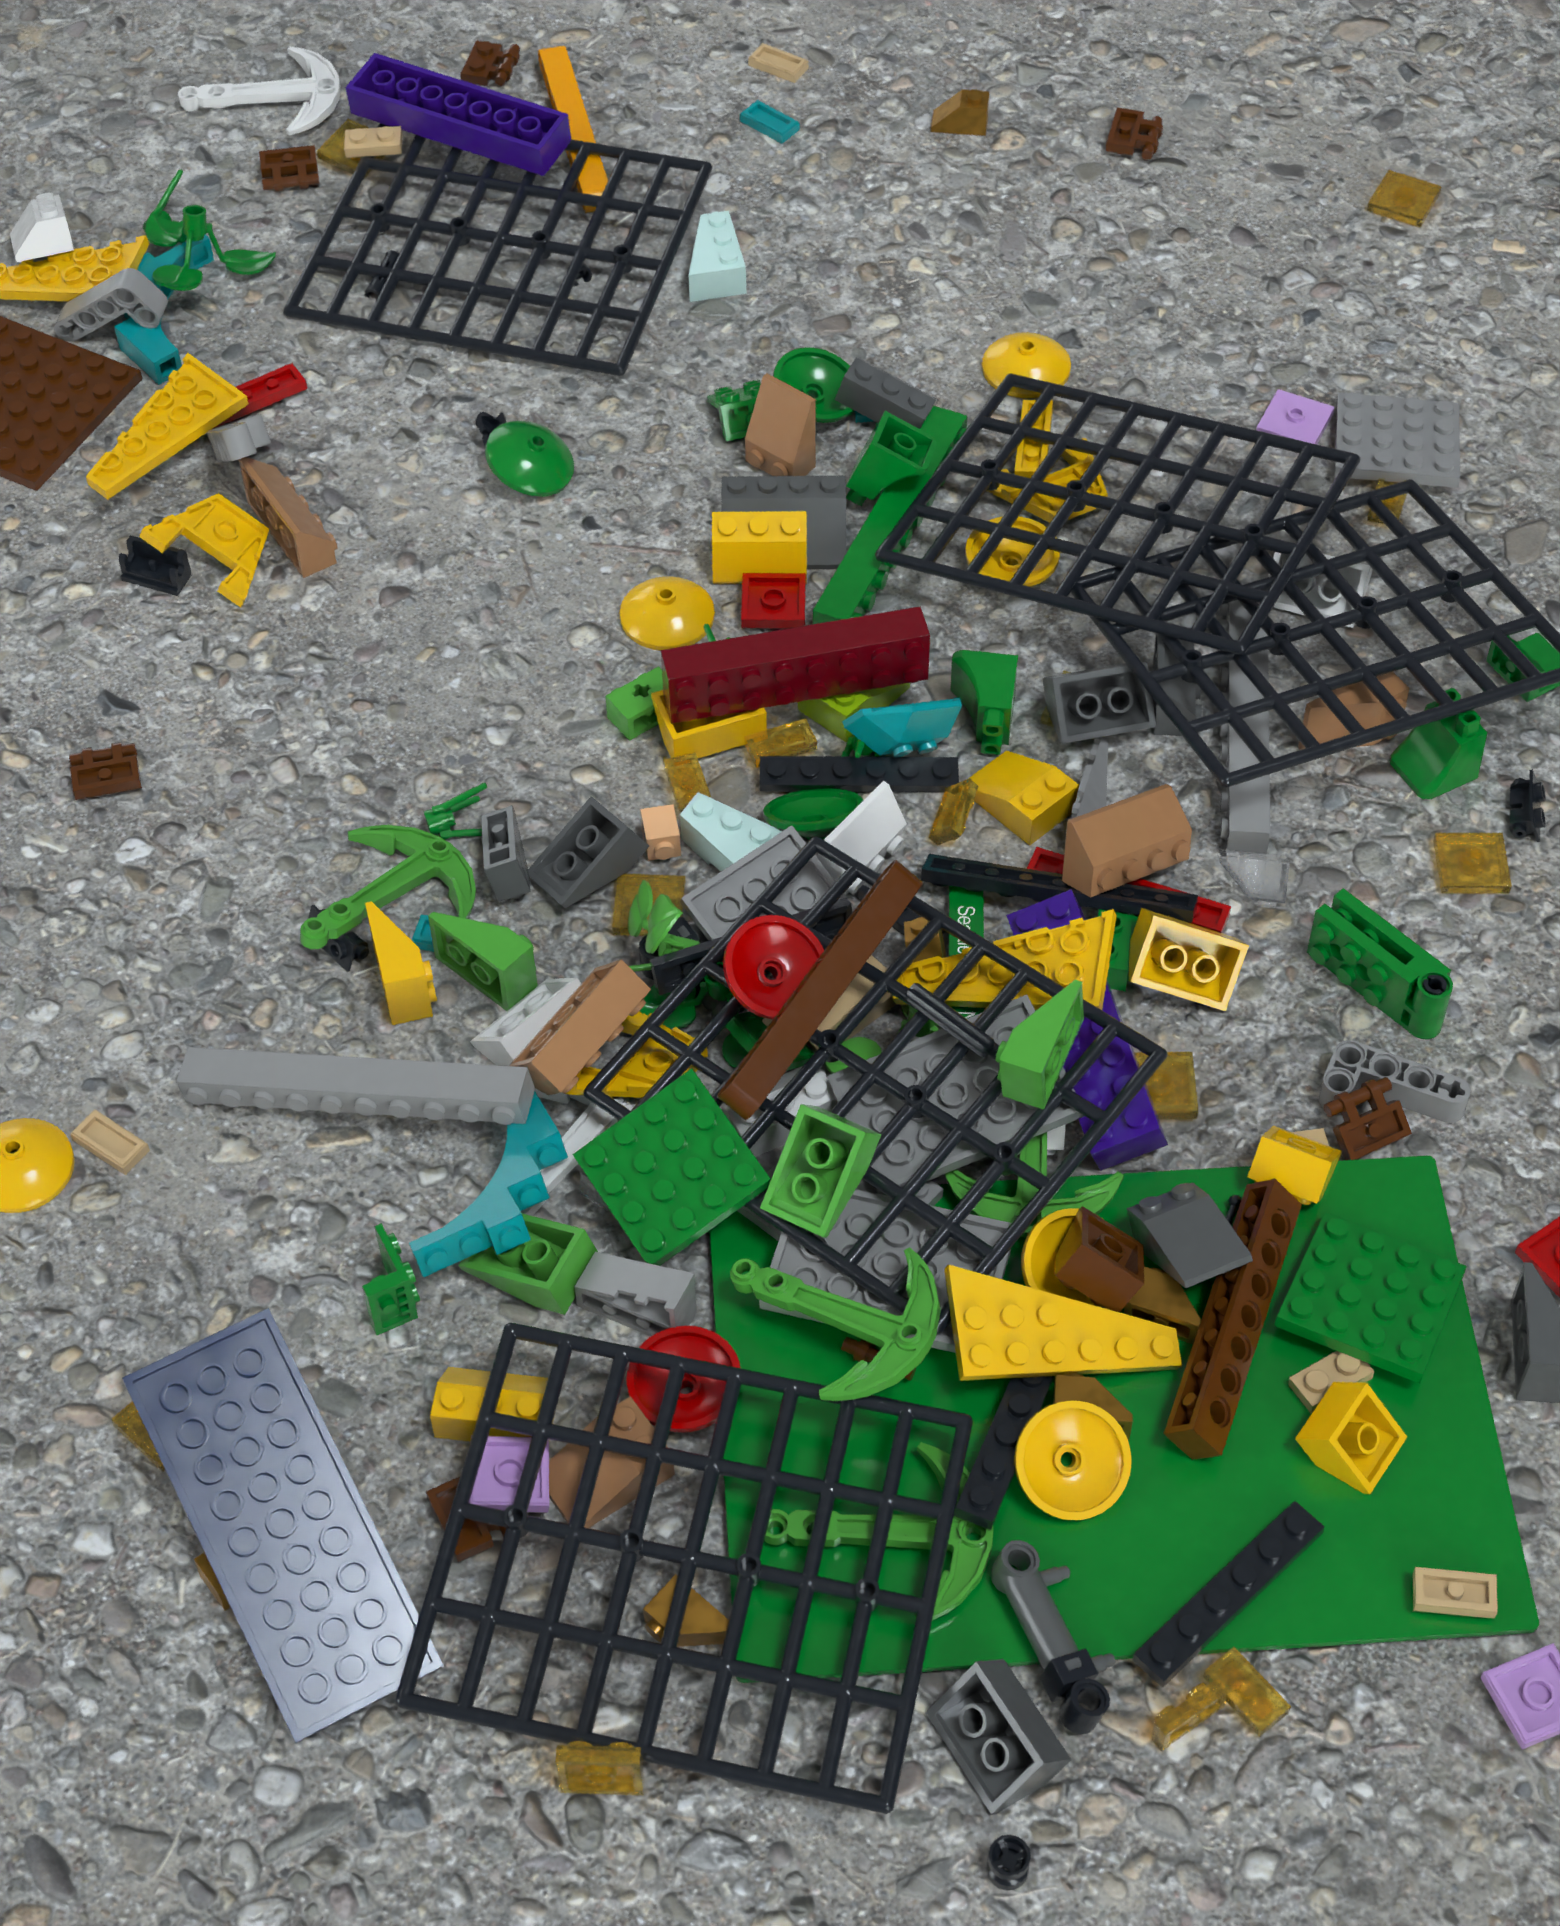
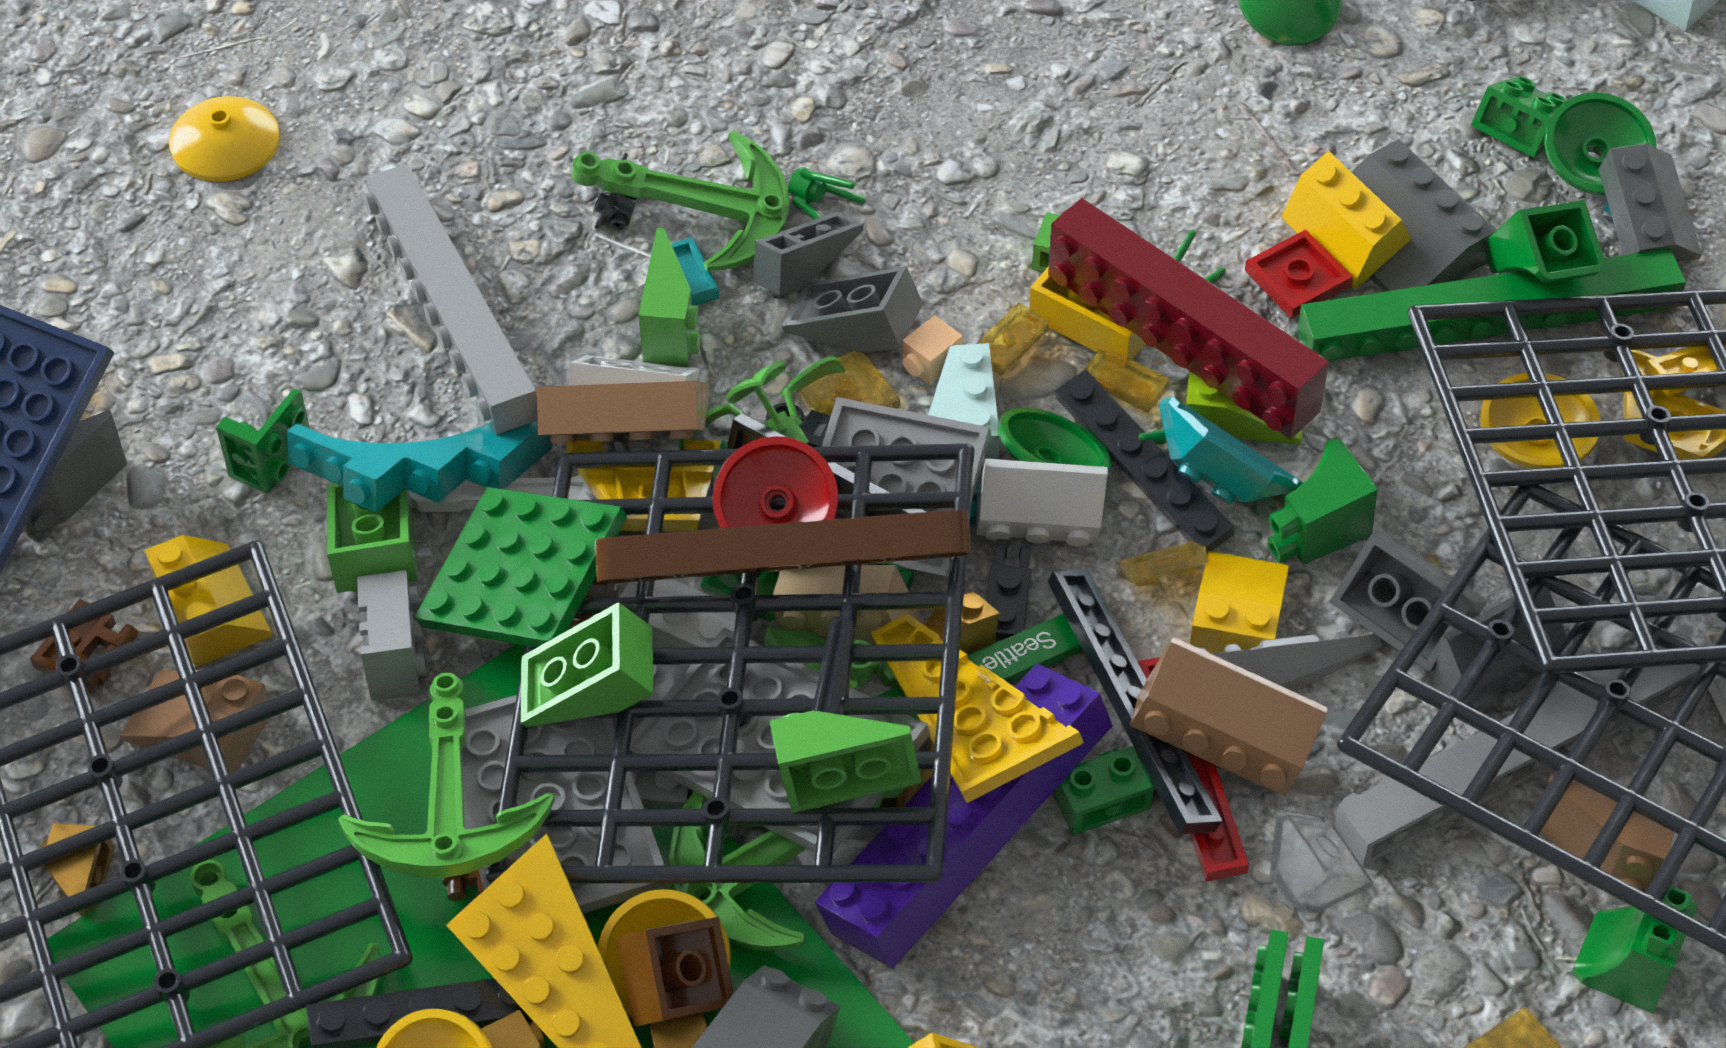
camera: 55 degrees right, 0 degrees up
(110, 1142) = (289, 180): tan tile -> none
(403, 974) = (601, 249): yellow slope -> none
(501, 1473) = (122, 628): lavender plate -> none
(666, 613) = (1214, 201): yellow dish -> none
(702, 1405) = (349, 706): red dish -> none
(782, 430) = (1497, 152): medium nougat slope -> none
(1173, 1086) = (974, 930): clear yellow plate -> none
(1185, 959) = (1132, 854): yellow slope -> none

